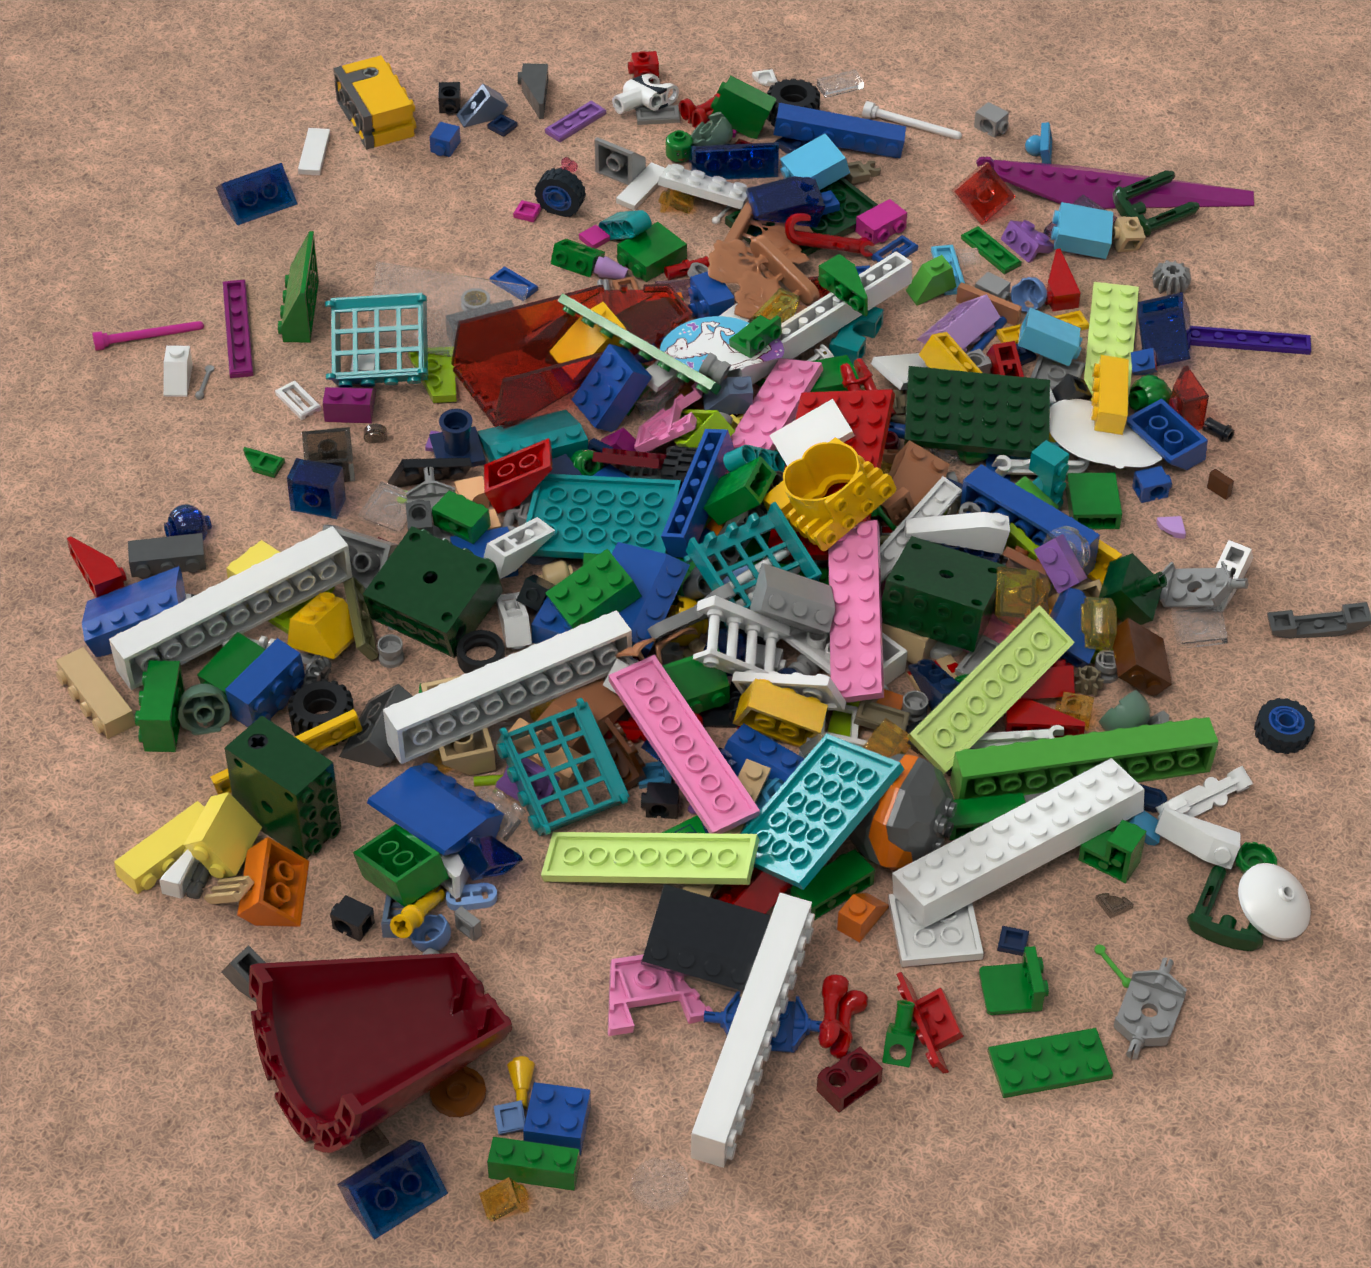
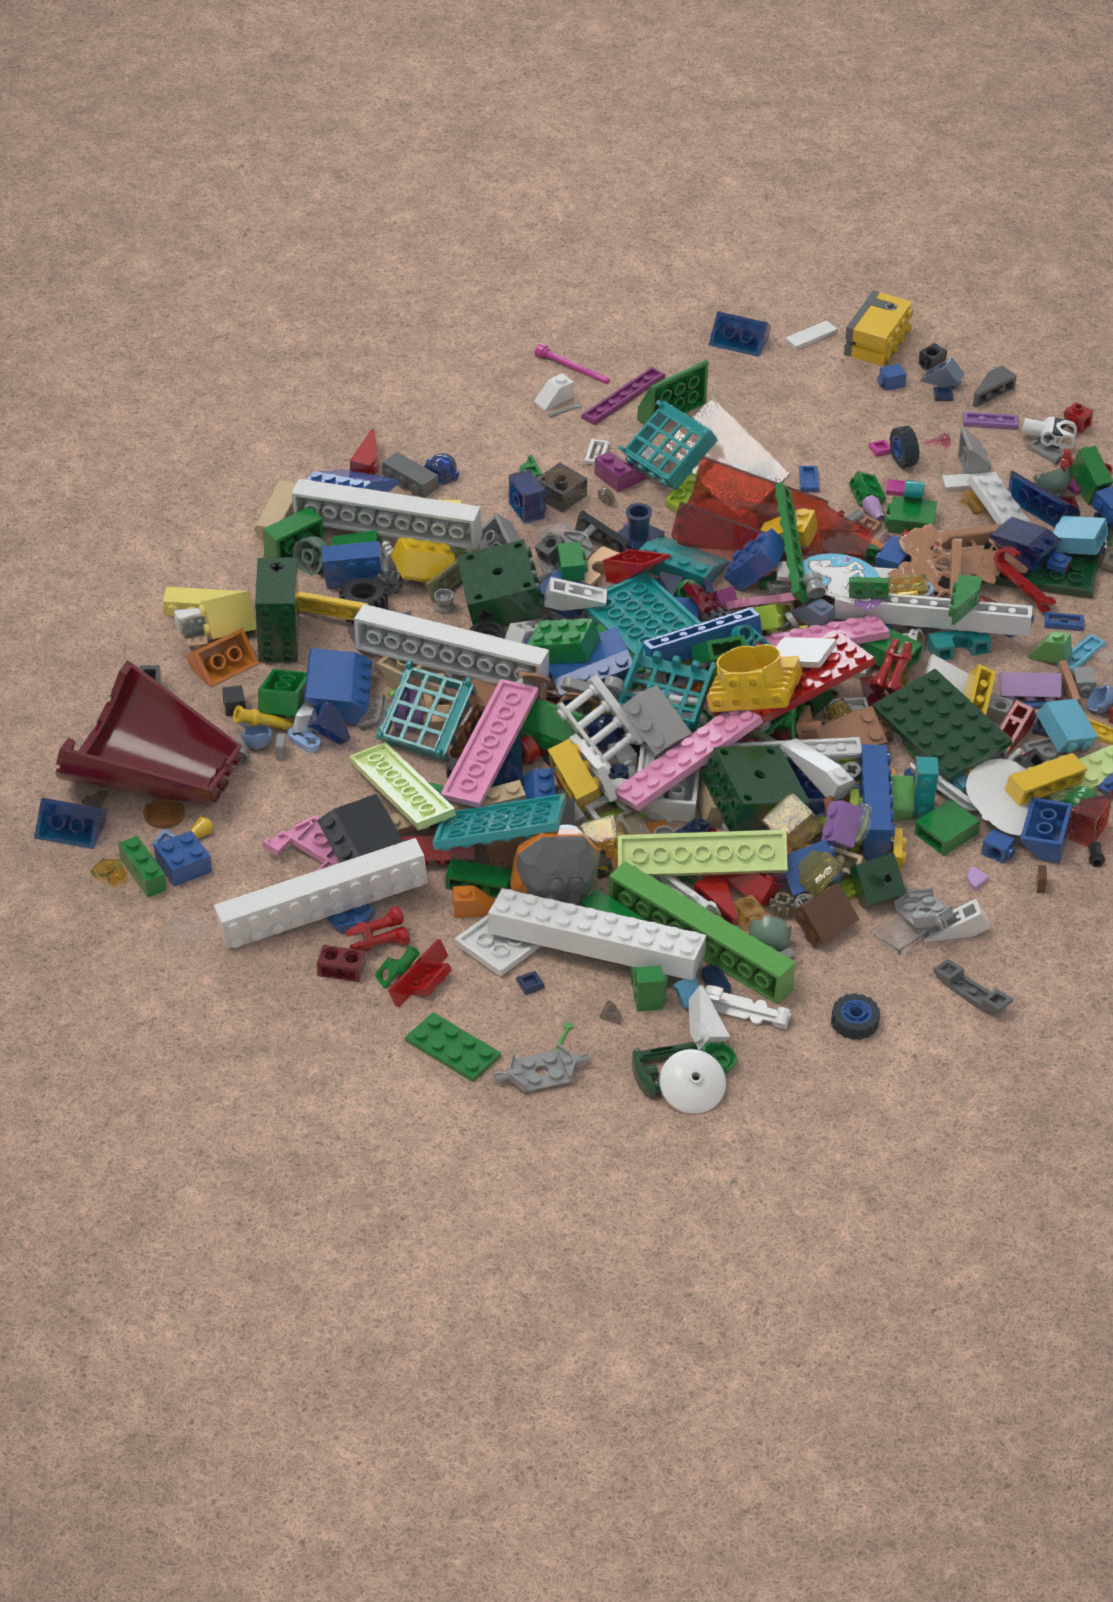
camera: 50 degrees right, 5 degrees down
(678, 146) = (1025, 468): green head -> none
(881, 222) = (1079, 598): dark pink hinge -> none
(1014, 986) = (492, 999): green bracket -> none

